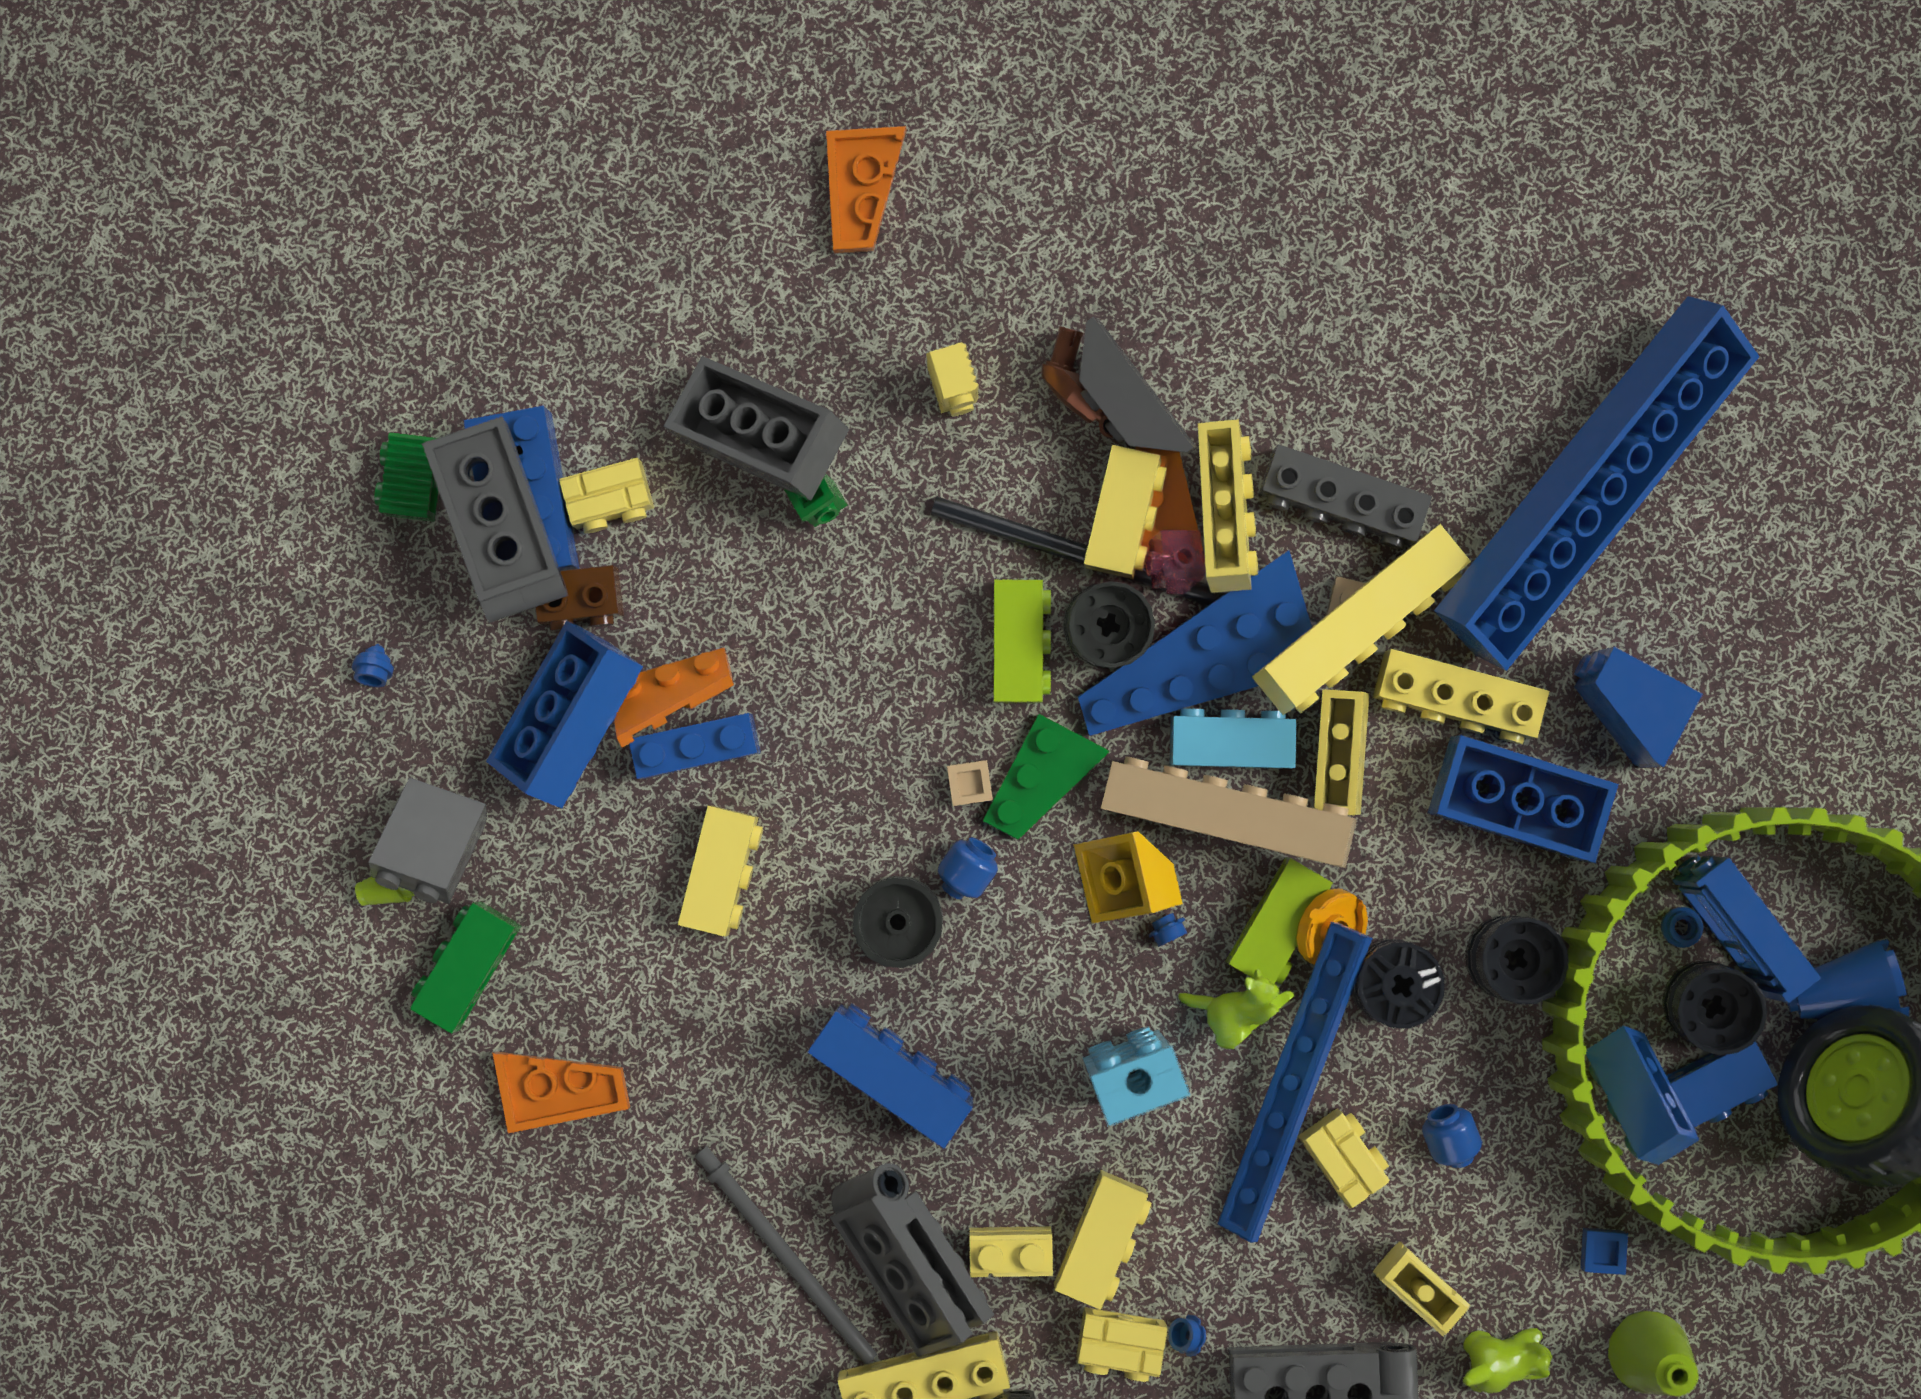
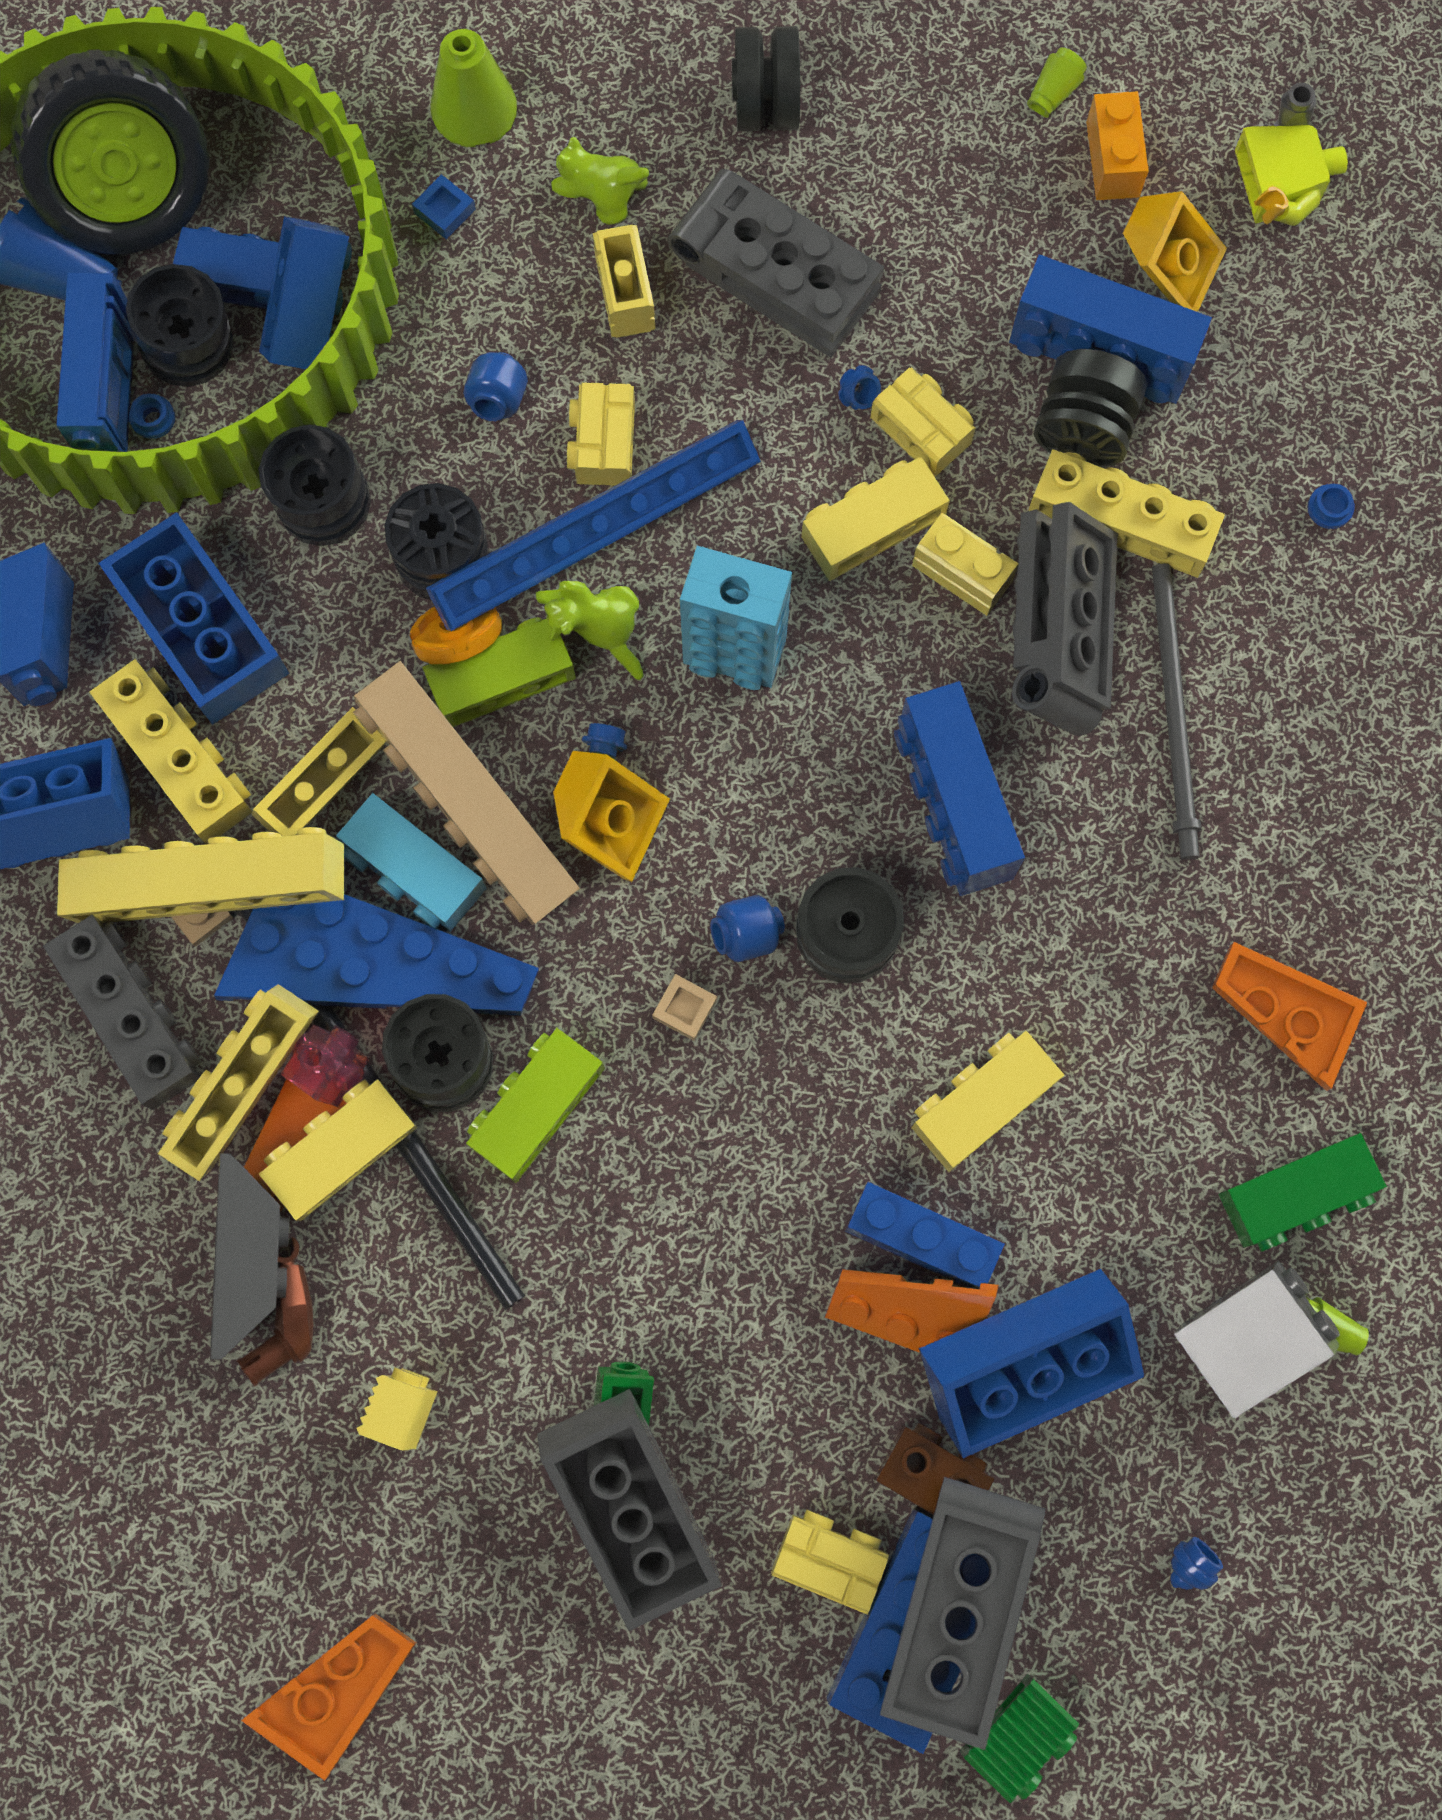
camera: 150 degrees left, 10 degrees down
(1041, 774) = (612, 966): green wing -> none

